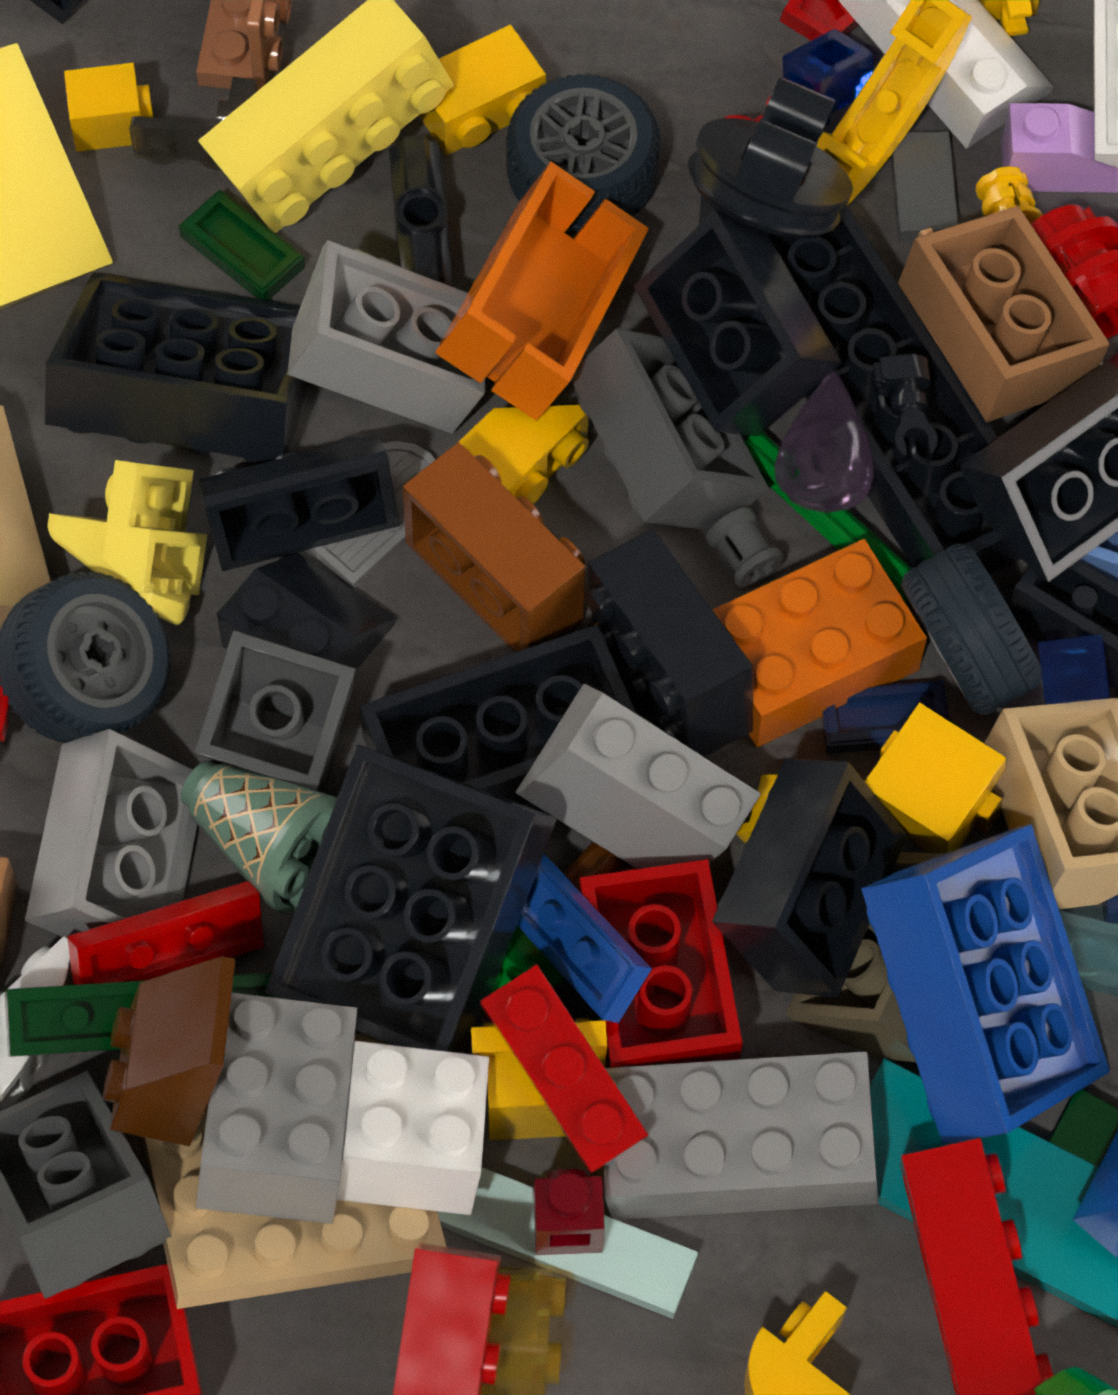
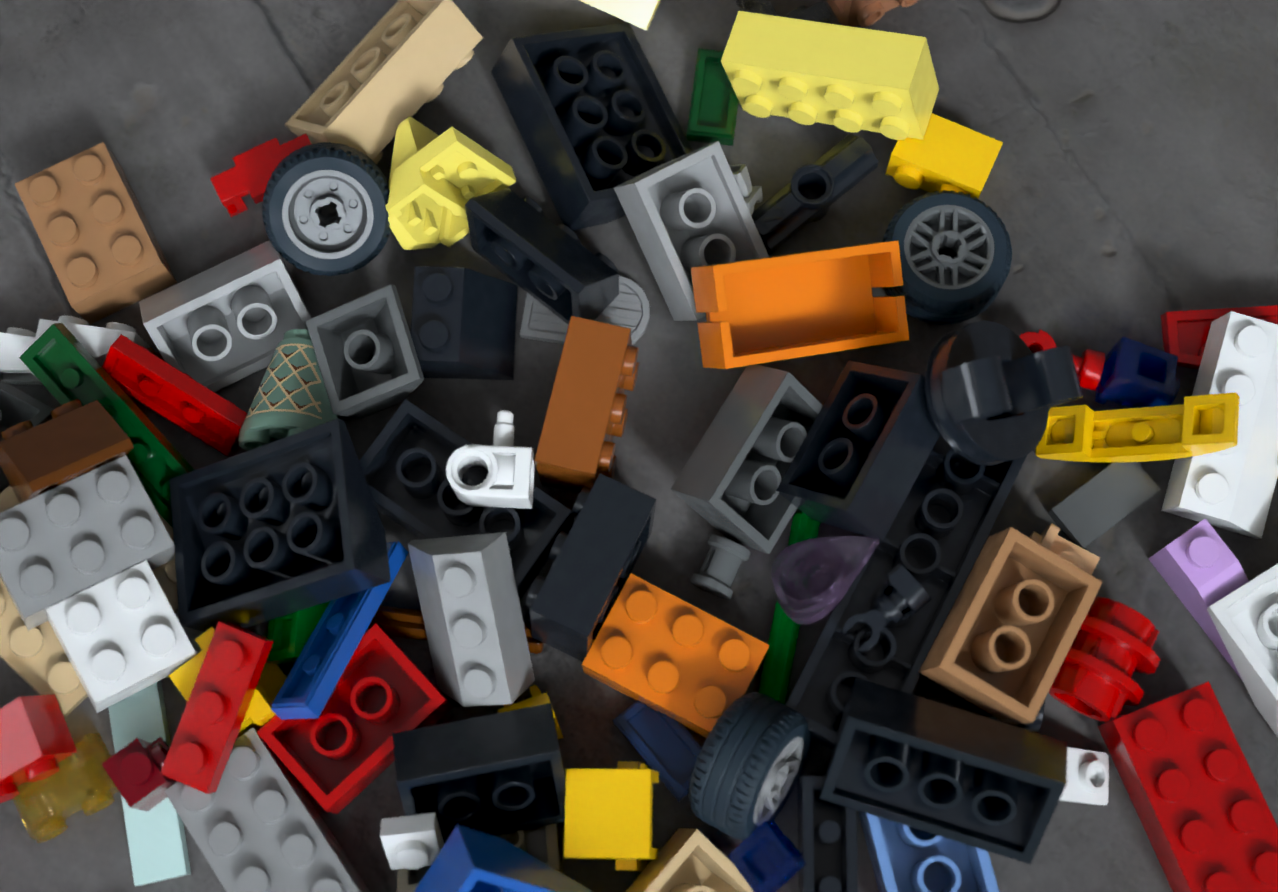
camera: 60 degrees right, 10 degrees up
(521, 644) = (509, 470): none -> white piece
(528, 449) = (675, 373): yellow slope -> none
(832, 977) = (411, 840): none -> white plate
(999, 195) = (1130, 570): yellow bush -> none

